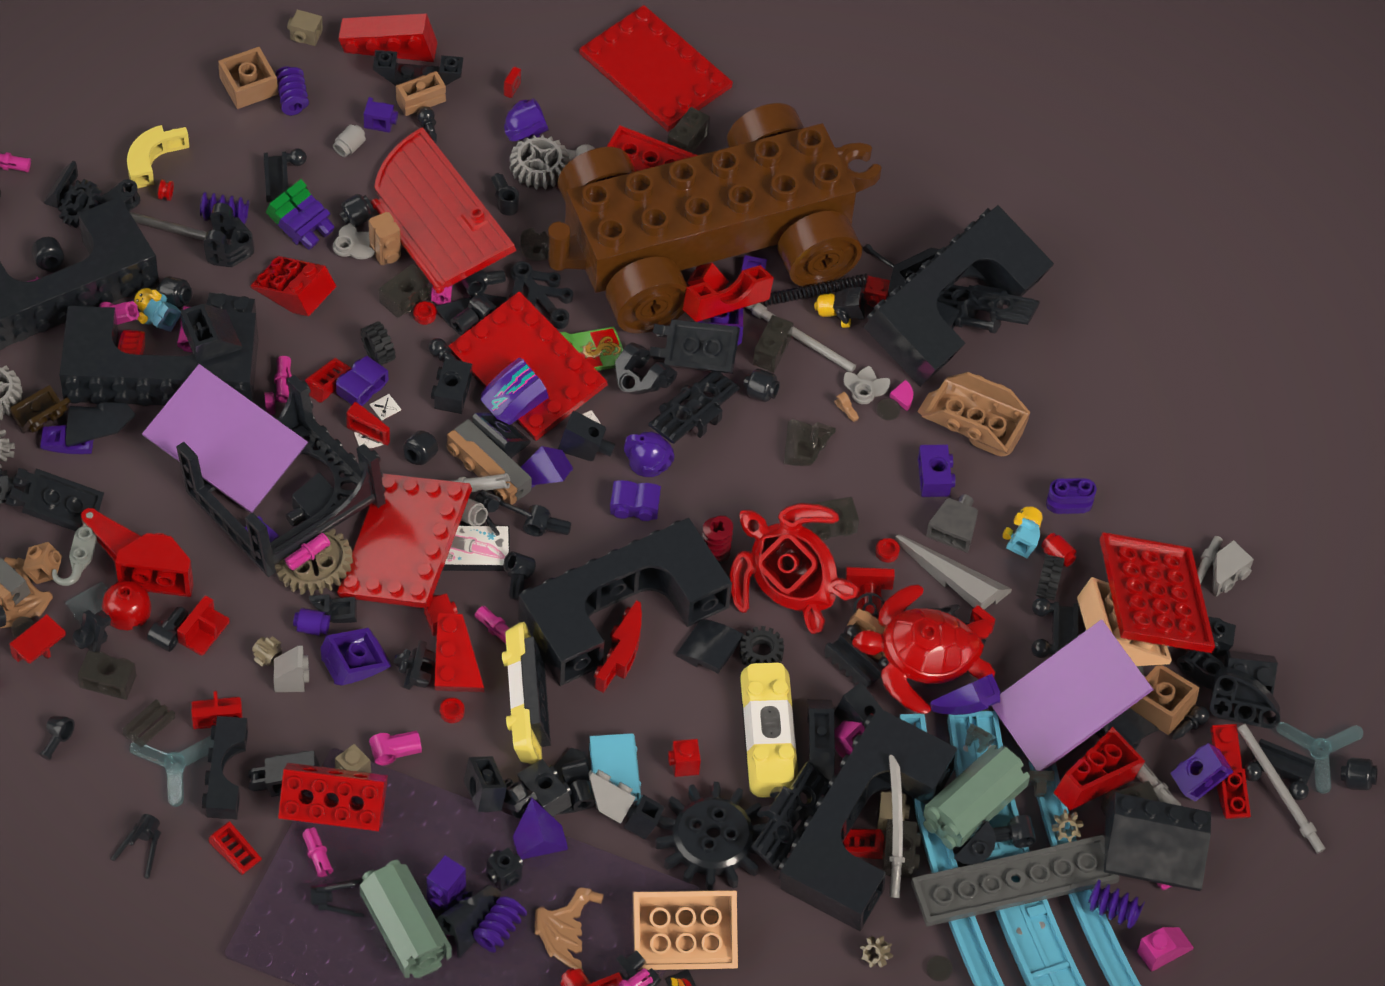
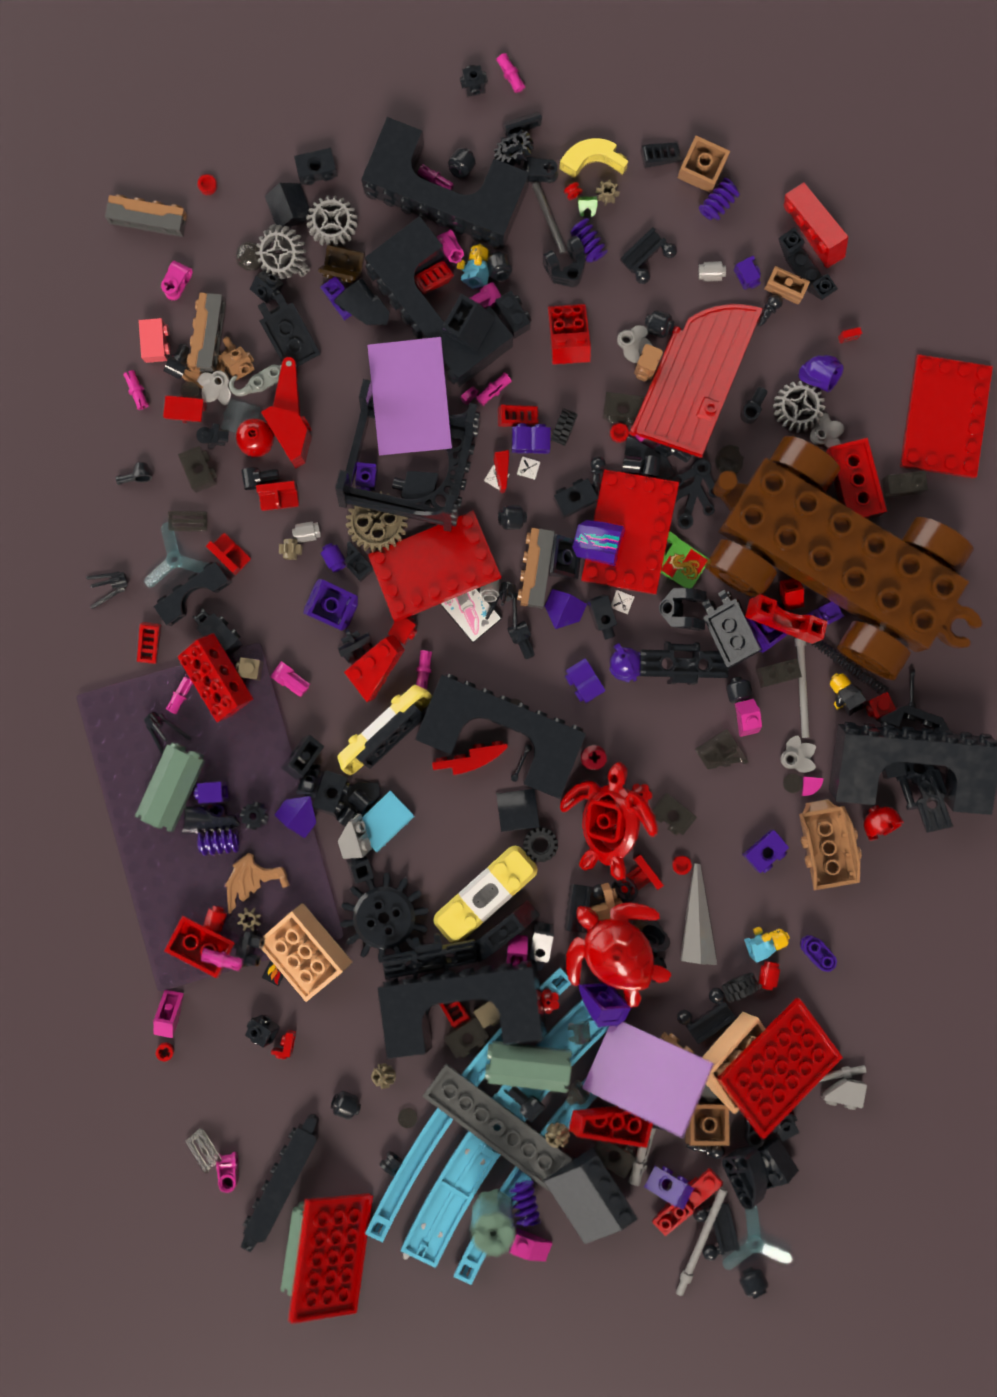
camera: 55 degrees right, 30 degrees up
(43, 603) = (213, 389): none -> light grey plate
(186, 189) = (587, 202): none -> tile
(195, 165) = (608, 187): none -> dark tan gear
(199, 119) = (653, 148): none -> black slope
(264, 625) = (306, 532): none -> light grey brick
(291, 671) = (286, 576): light grey slope -> none
(300, 215) = (623, 299): dark purple hips -> none
(305, 27) = (778, 164): dark tan brick -> none
(307, 551) = (371, 517): dark pink axle -> none
(452, 710) = (345, 690): red tile -> none
(487, 482) = (506, 570): light grey pin -> none
(518, 568) = (473, 650): black axle -> none
(598, 952) = (249, 924): none -> dark tan gear
(675, 628) = (527, 748): none -> black hinge
(685, 757) = (422, 859): red brick -> none
(795, 391) = (748, 717): none -> dark pink slope
(843, 403) = (771, 754): medium nougat piece -> none
(897, 821) = (449, 1046): light grey sword -> none
(954, 523) = (736, 894): flat silver torso -> none
(978, 846) = (497, 1092): black plate -> none
(980, 614) = (674, 965): red tile -> none
(987, 358) = (881, 821): none -> red cylinder
(1108, 923) = (493, 1222): none -> sand green brick

